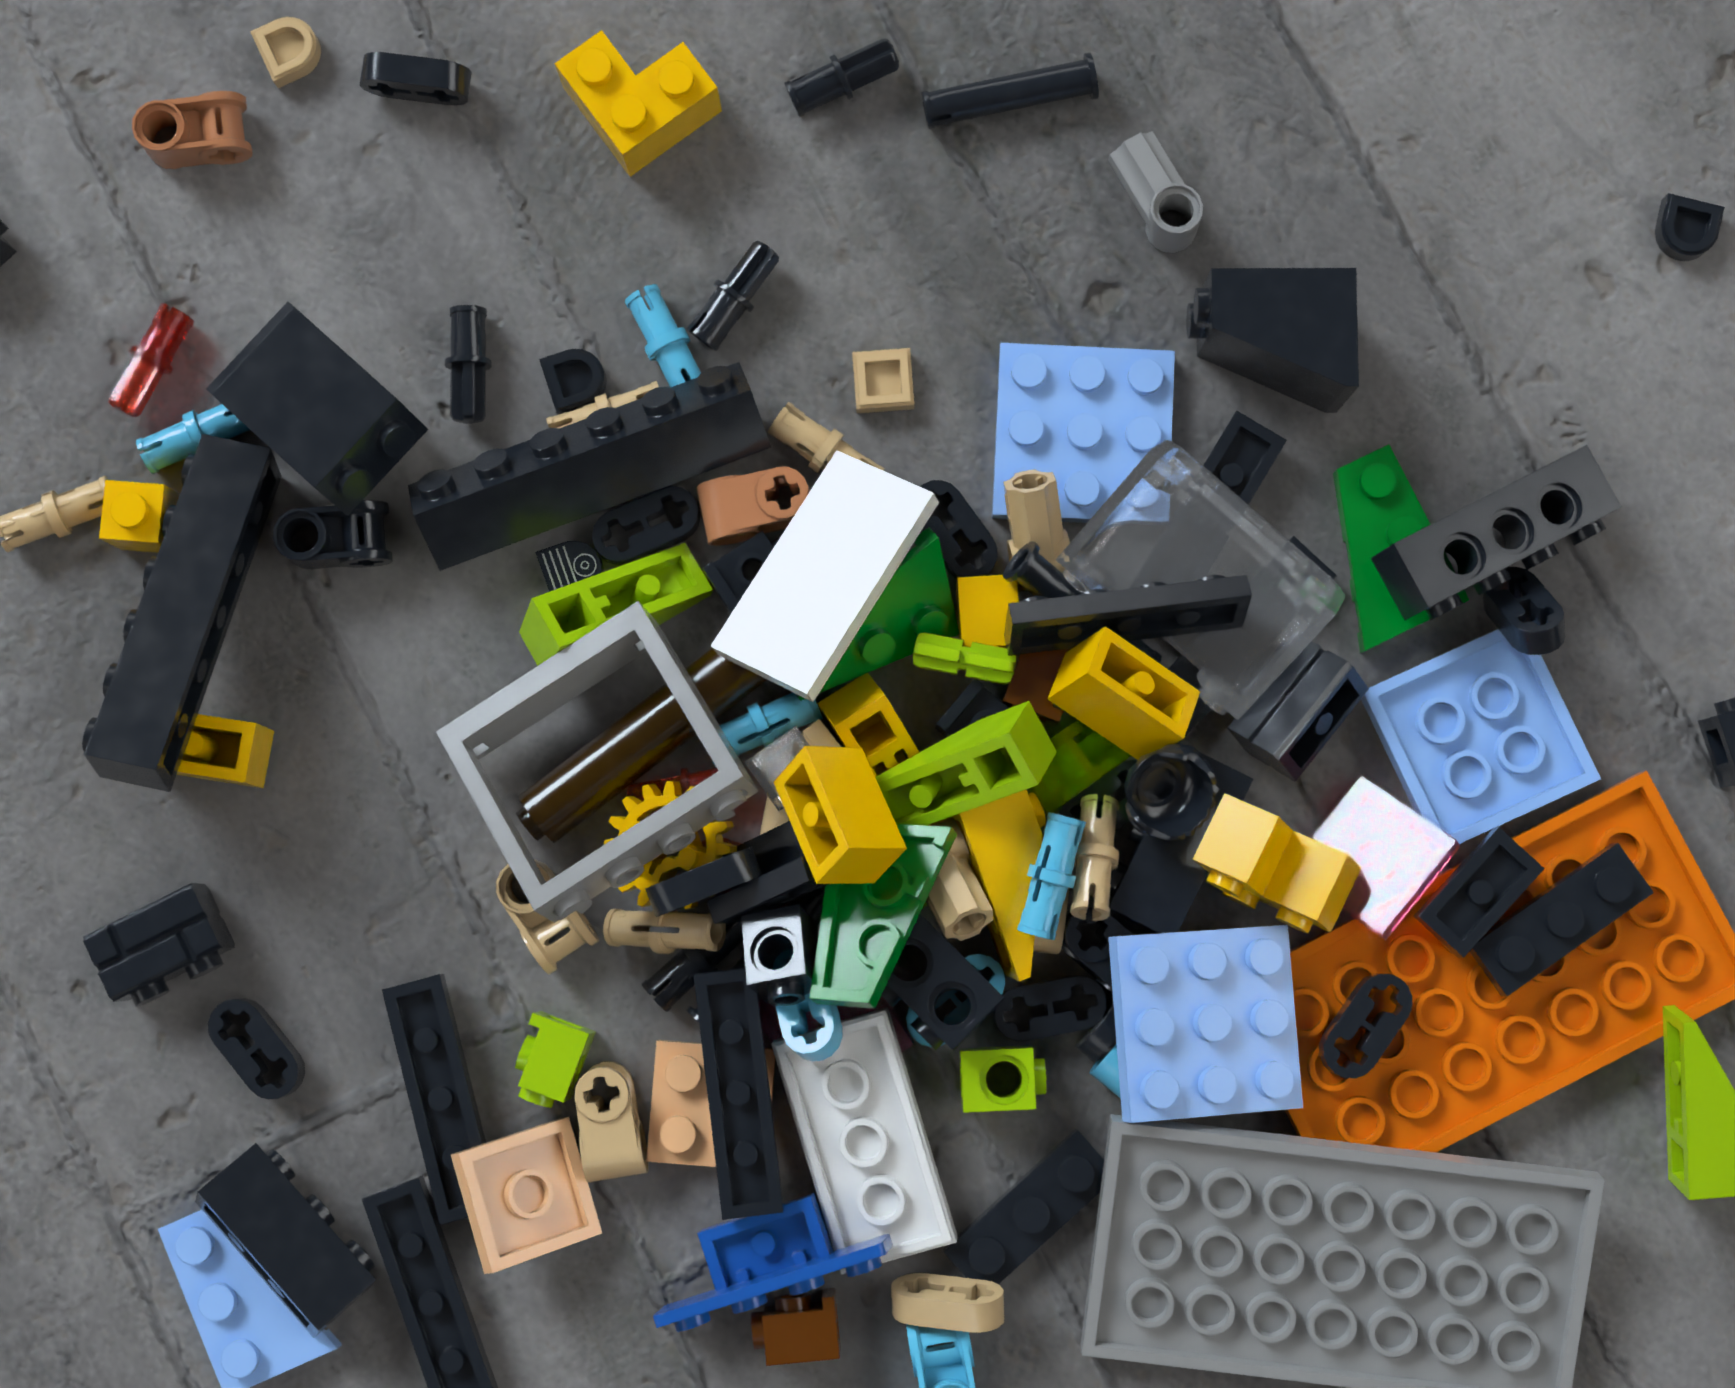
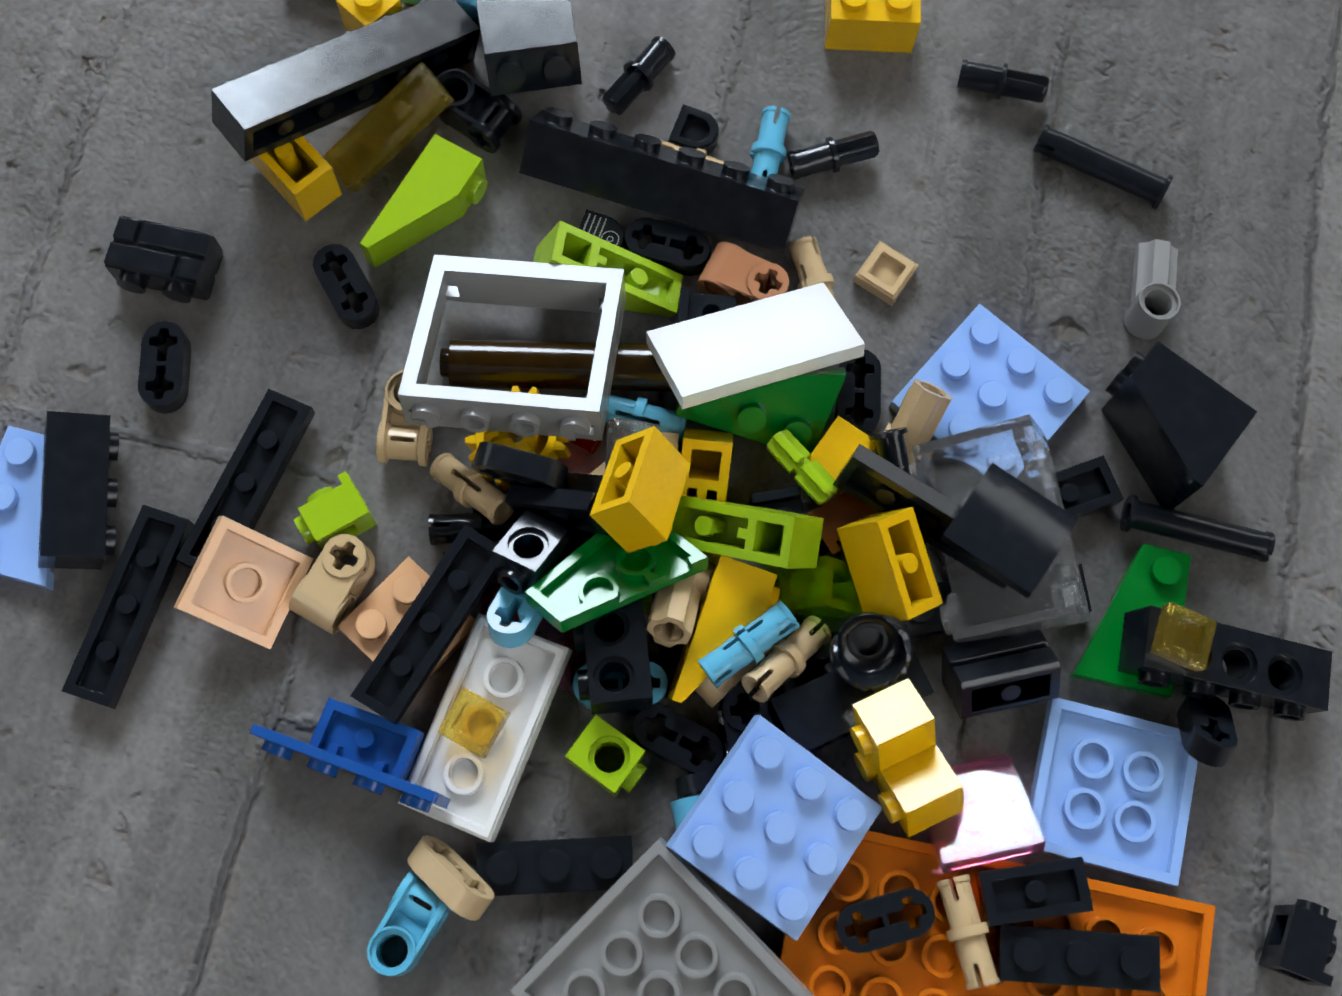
camera: 30 degrees right, 10 degrees down
(266, 627) = (388, 127): none -> clear yellow tile
(357, 836) = (354, 281): none -> black beam
(370, 661) = (428, 199): none -> lime slope
(798, 1329) = (340, 815): reddish brown brick -> none
(854, 1148) = (474, 722): none -> clear yellow tile
(1212, 575) = (1009, 530): none -> black slope
(1375, 414) = (1196, 529): none -> black pin
(1445, 551) = (1183, 637): none -> clear yellow tile
(1447, 976) = (967, 932): none -> tan pin

